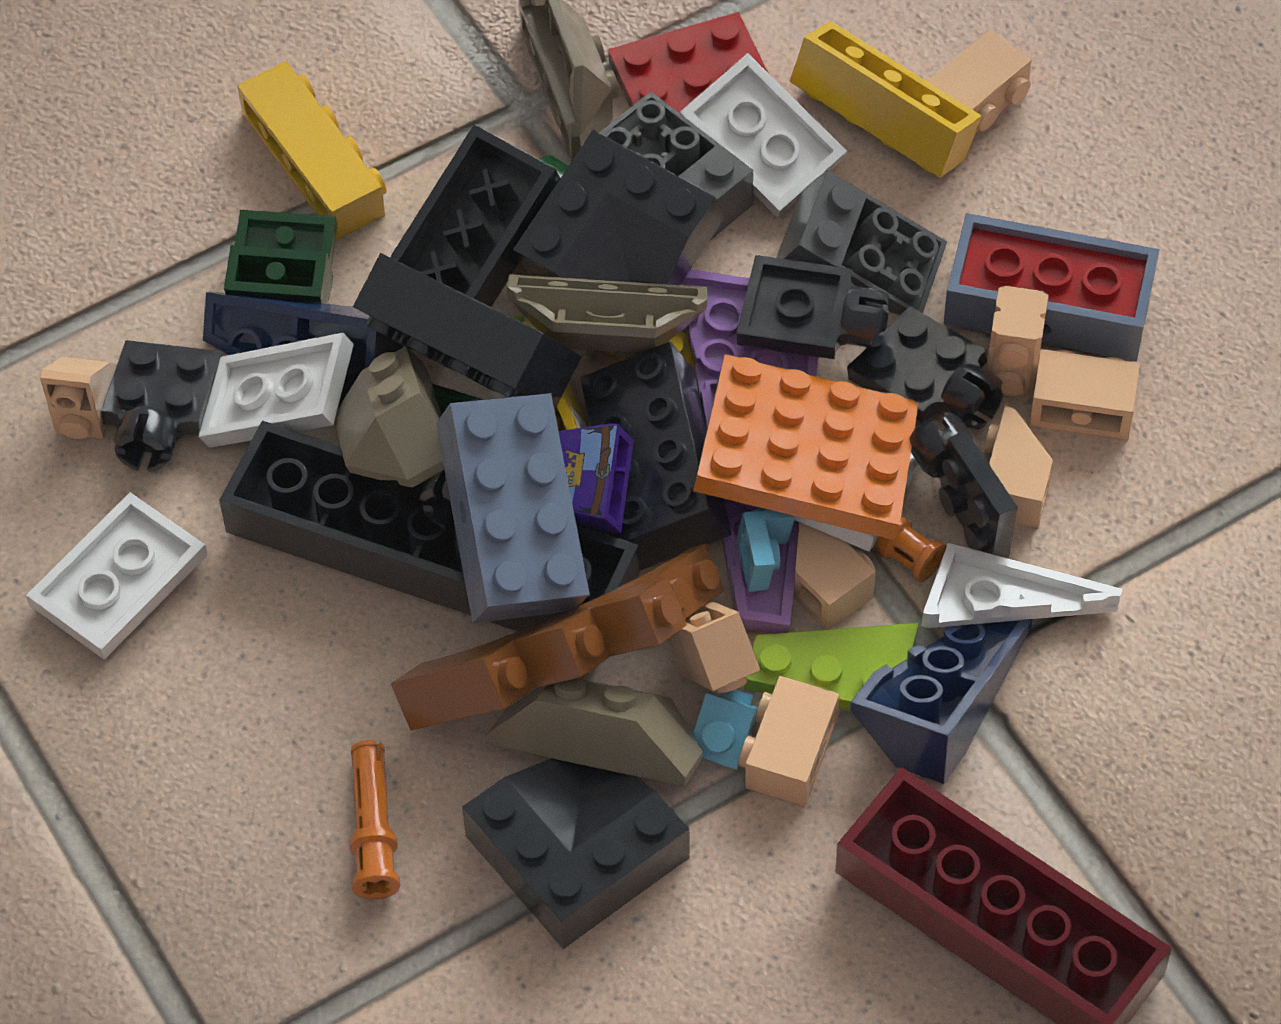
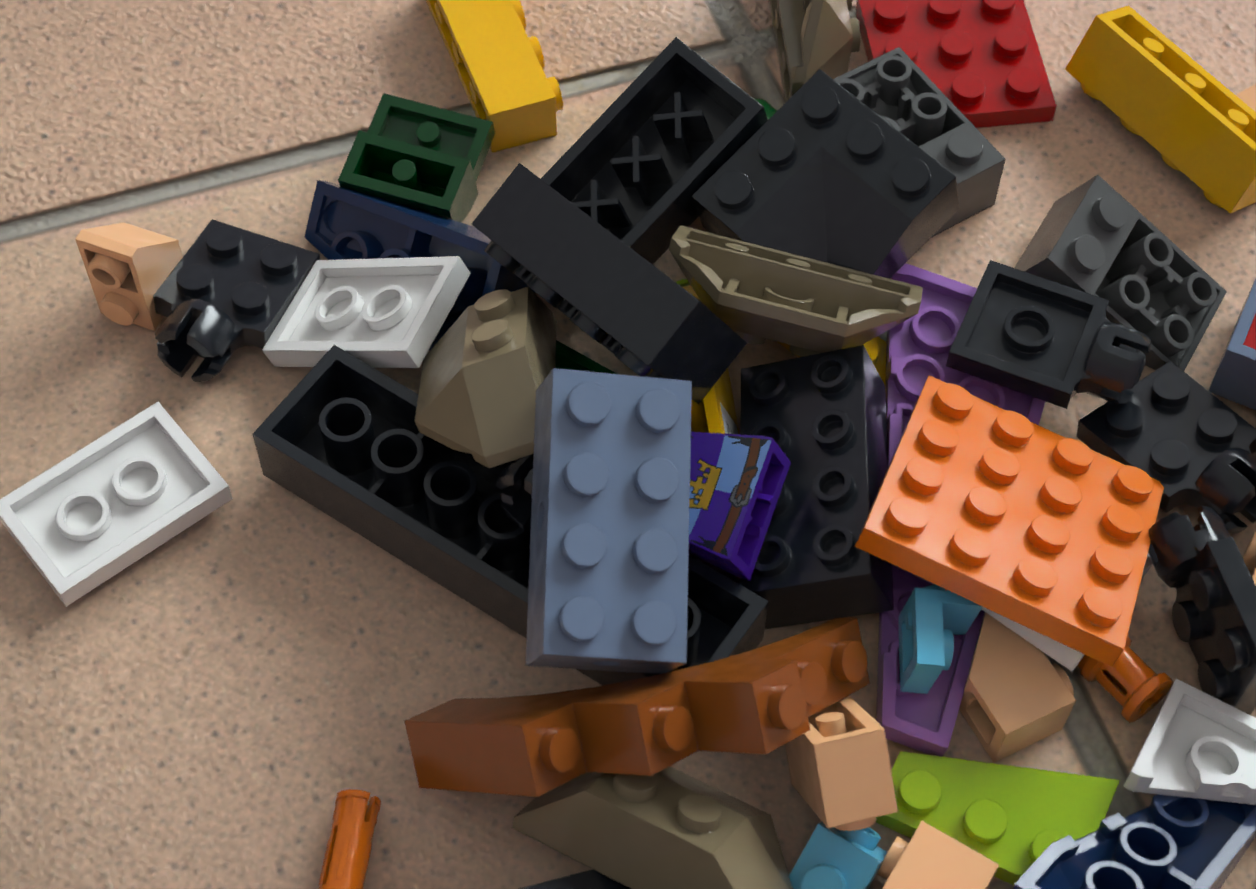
camera: 10 degrees right, 0 degrees up
(767, 132) = (1030, 118): white plate -> none

